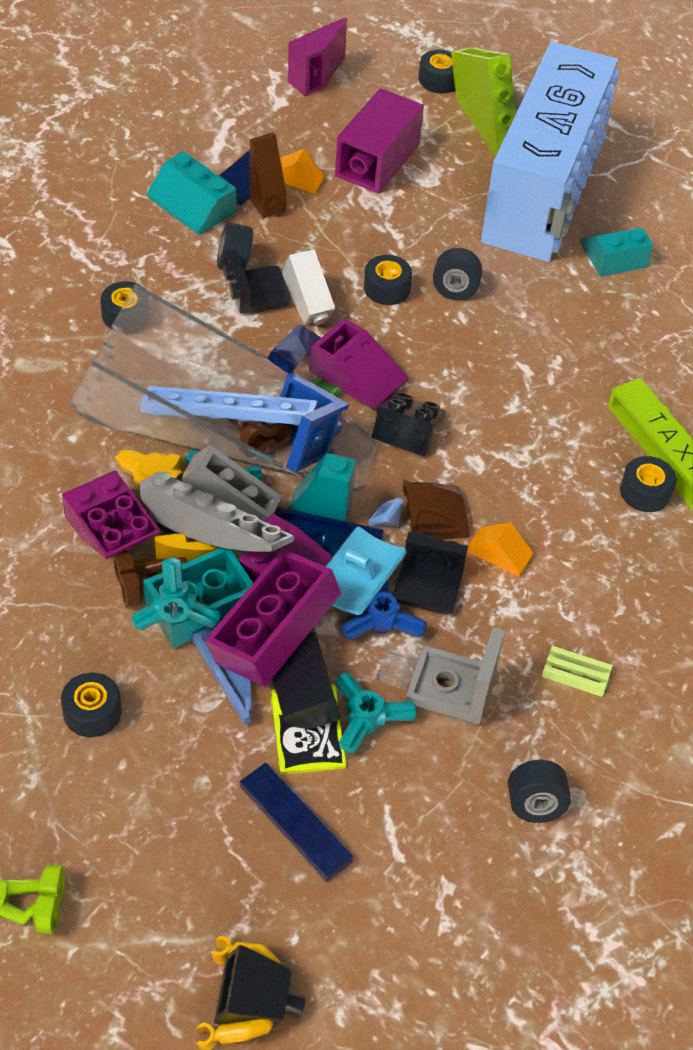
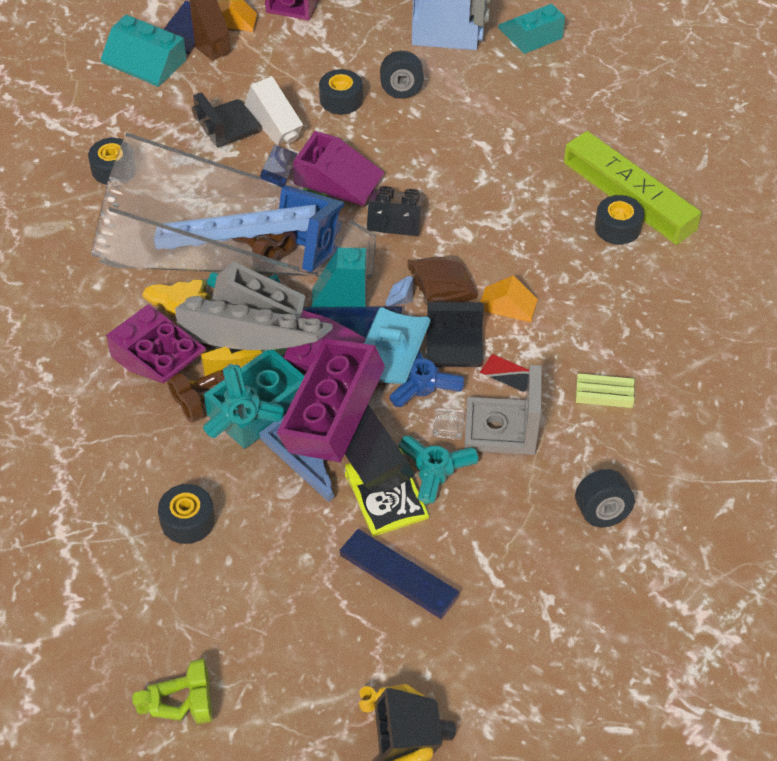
camera: 10 degrees left, 0 degrees up
(235, 239) = (194, 82): black wheel -> none
(473, 625) = (506, 372): none -> sticker

